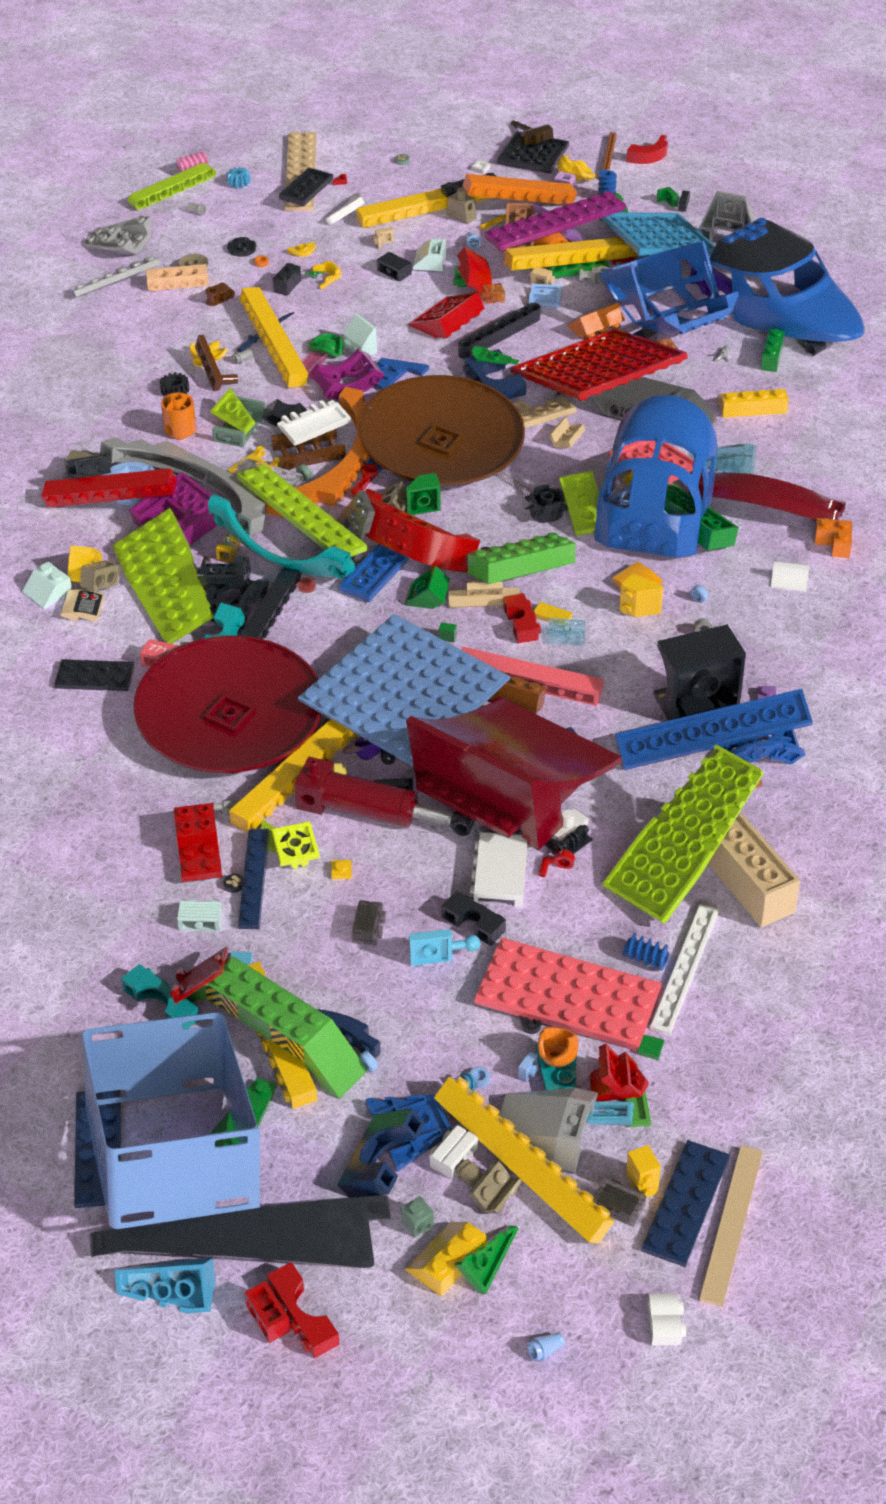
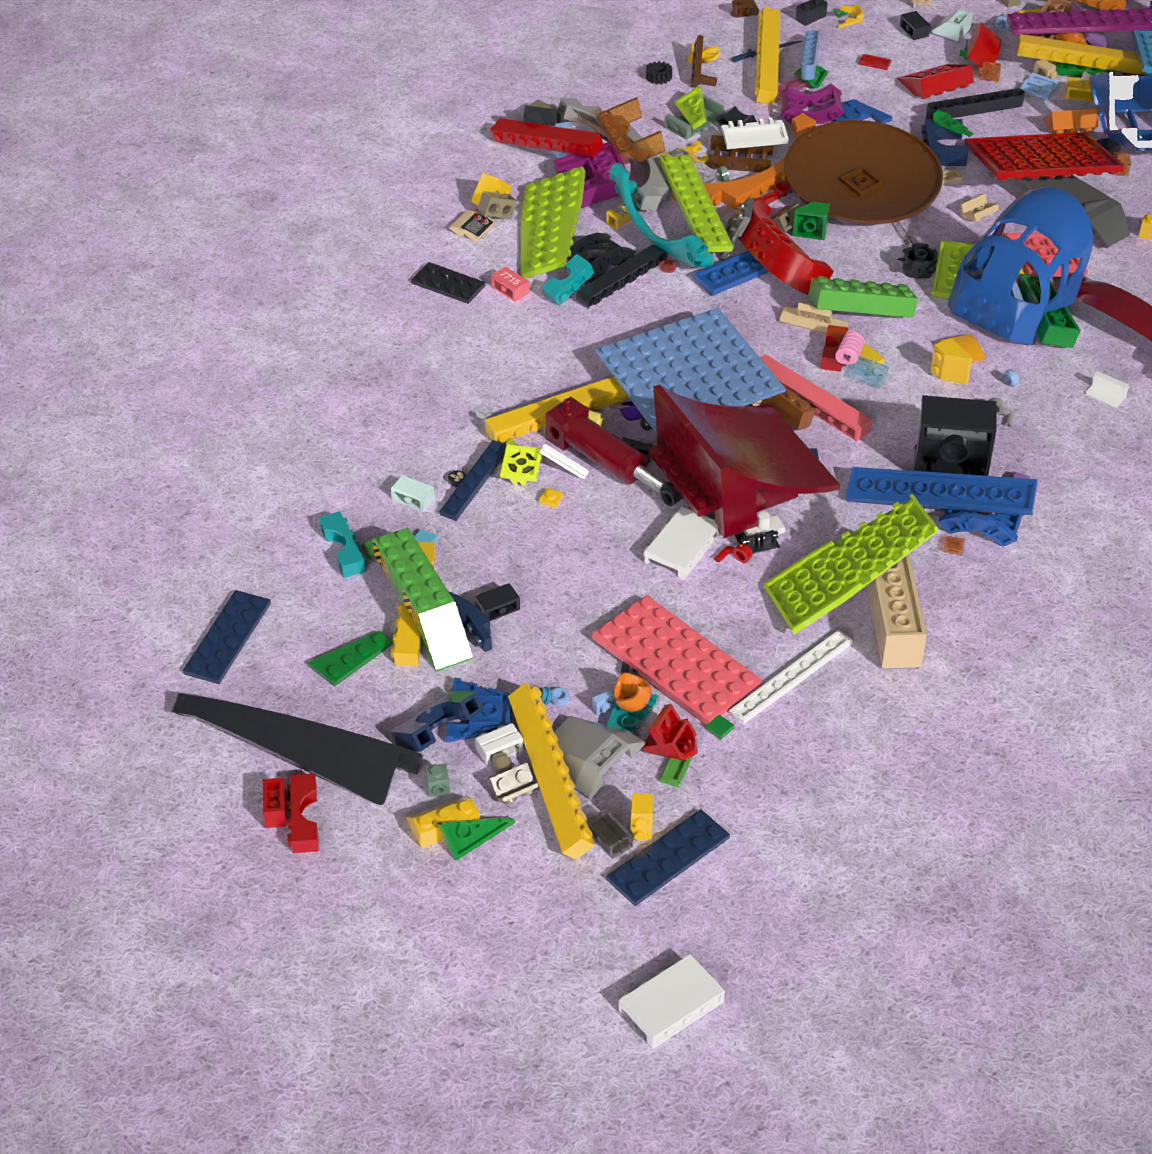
camera: 25 degrees right, 0 degrees up
(47, 585) = (452, 200): light aqua slope -> none
(174, 453) = (616, 125): none -> clear orange windscreen
(178, 415) = (646, 91): orange cylinder -> none
(179, 1283) = (224, 757): dark azure wedge -> none
(182, 1174) = (249, 663): medium blue piece -> none
(191, 689) = (502, 324): dark red dish -> none
(197, 842) = (445, 435): red piece -> none
(198, 976) = (369, 533): red window -> none
(224, 573) = (586, 227): black fence -> none
(241, 356) = (732, 64): light grey pin -> none
(317, 325) = (810, 55): none -> medium blue beam
(335, 826) = (564, 461): none -> white axle
(359, 999) = (498, 602): none -> black brick
(360, 335) = (843, 75): light aqua slope -> none
(367, 923) = (544, 545): clear smoke brick -> none
(368, 1060) = (475, 650): light blue tile -> none
(378, 314) = (875, 62): none -> red tile
(428, 589) = (769, 300): green slope -> none
(437, 946) = (585, 582): medium azure plate -> none
(447, 632) = (762, 340): green piece -> none
(462, 908) = (642, 581): black arch -> none
(542, 613) = (850, 348): none -> bright pink piece
(544, 1346) = (477, 916): light blue cone -> none
(549, 412) = (971, 186): tan wing -> none
(586, 288) = (1078, 89): none -> yellow piece
(612, 1117) = (647, 766): medium azure tile -> none
(646, 952) = (764, 650): blue piece -> none
(665, 1319) = (588, 936): white brick -> none
(731, 1226) = (694, 889): tan tile -> none
(734, 458) = (1122, 274): clear light blue wedge -> none
(783, 1349) = (672, 1000): none -> white panel

